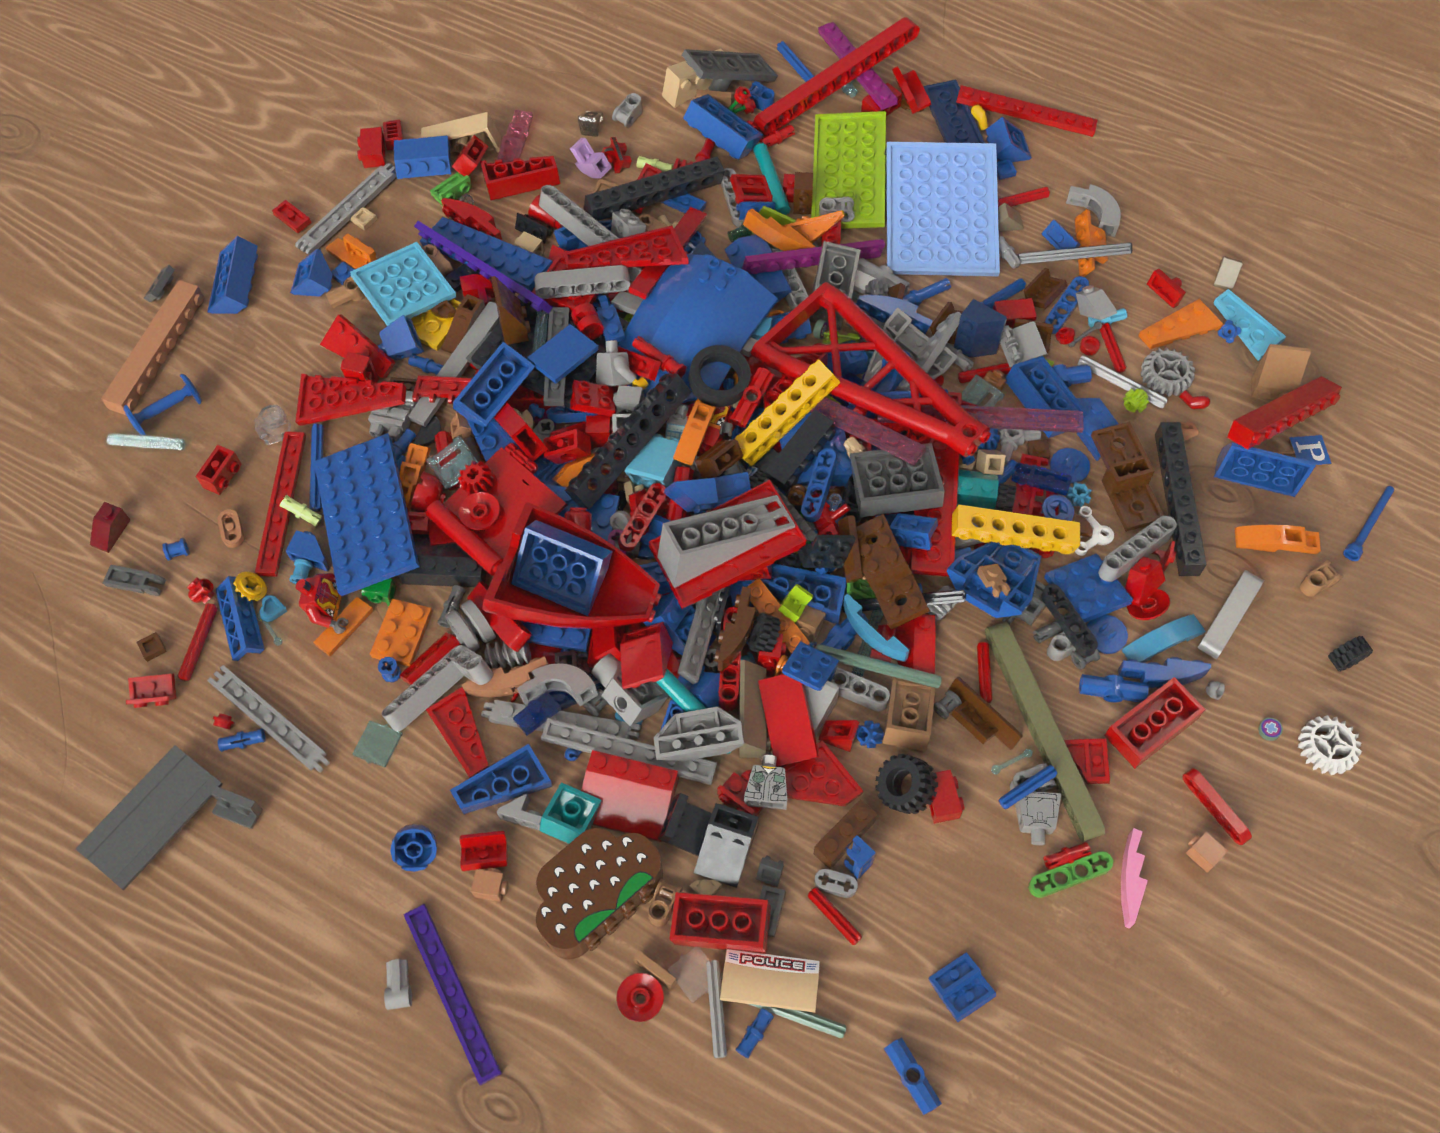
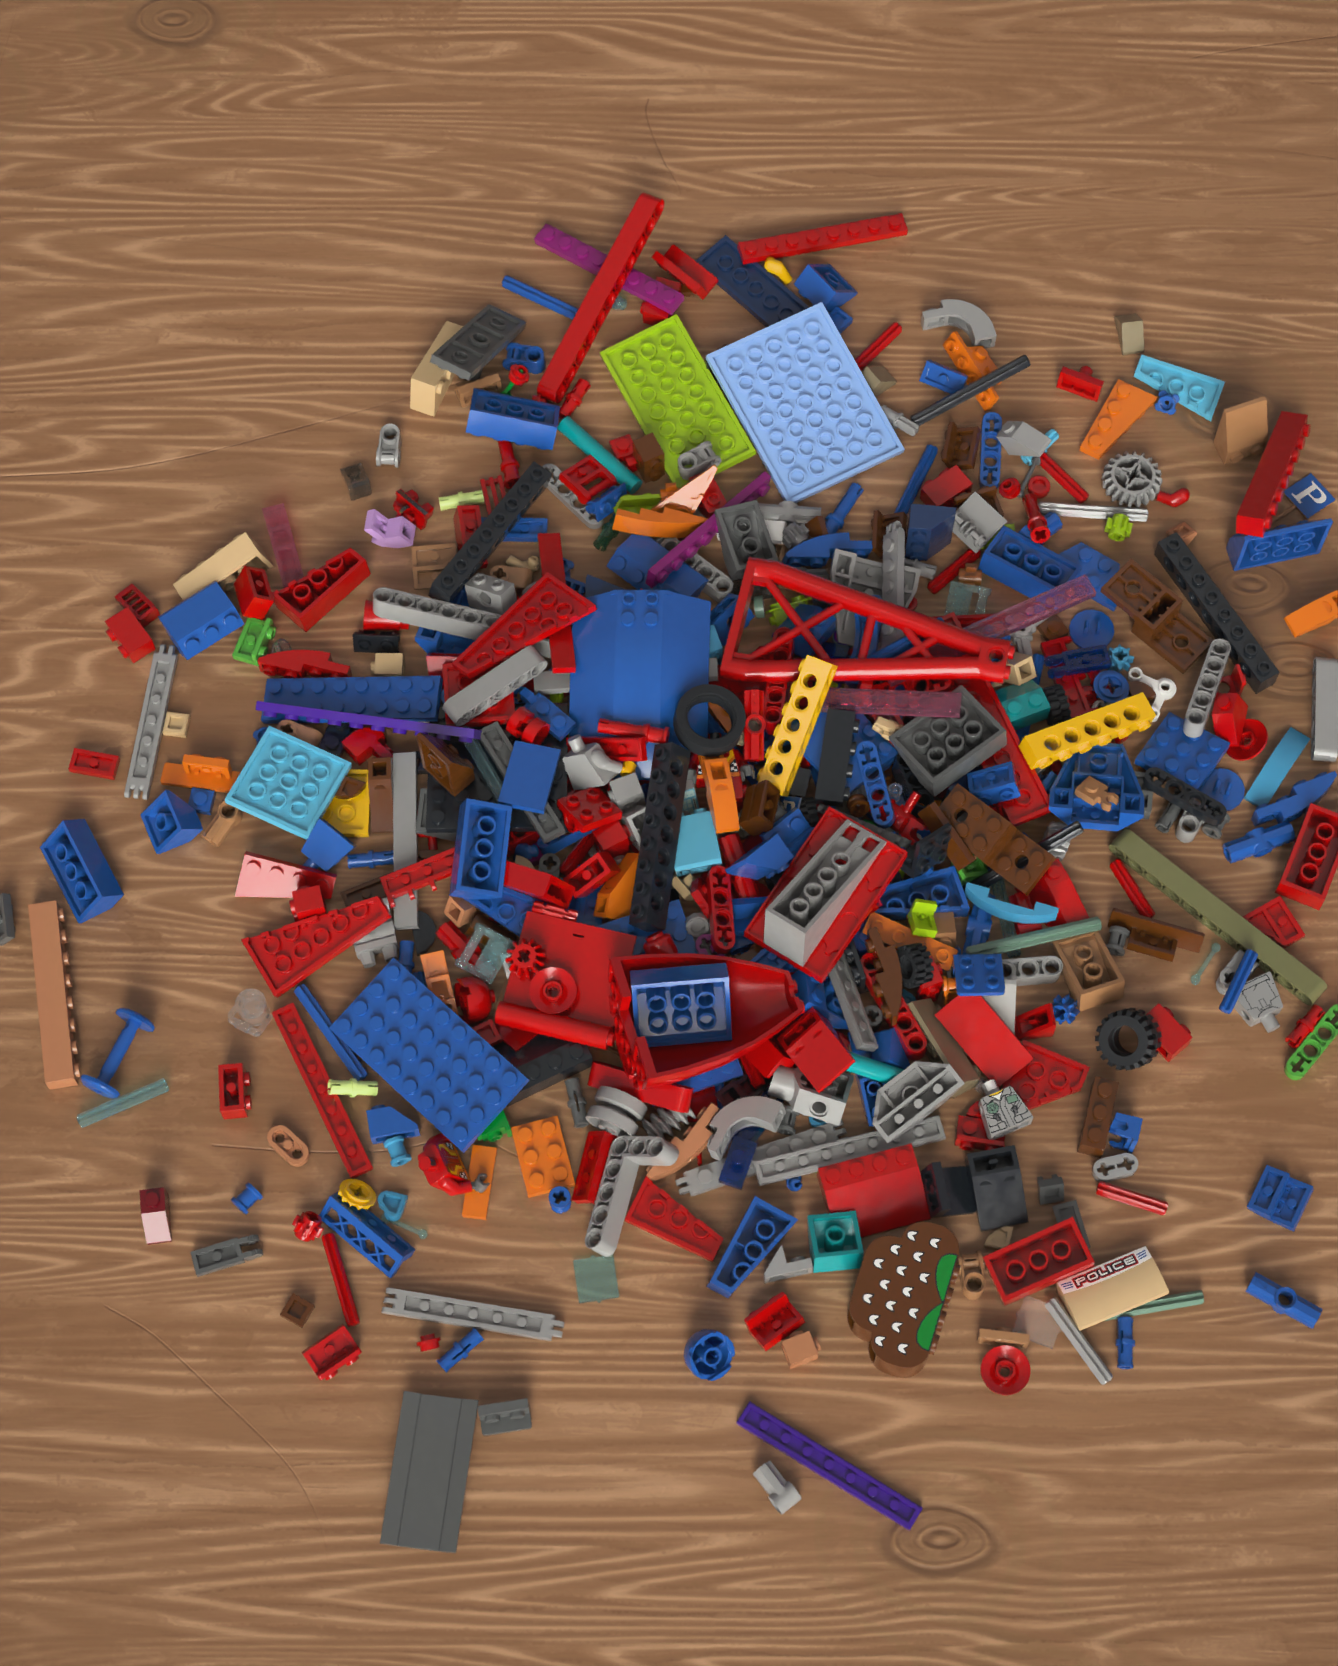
camera: 30 degrees left, 5 degrees up
(1070, 363) = (1036, 522): none -> red pin

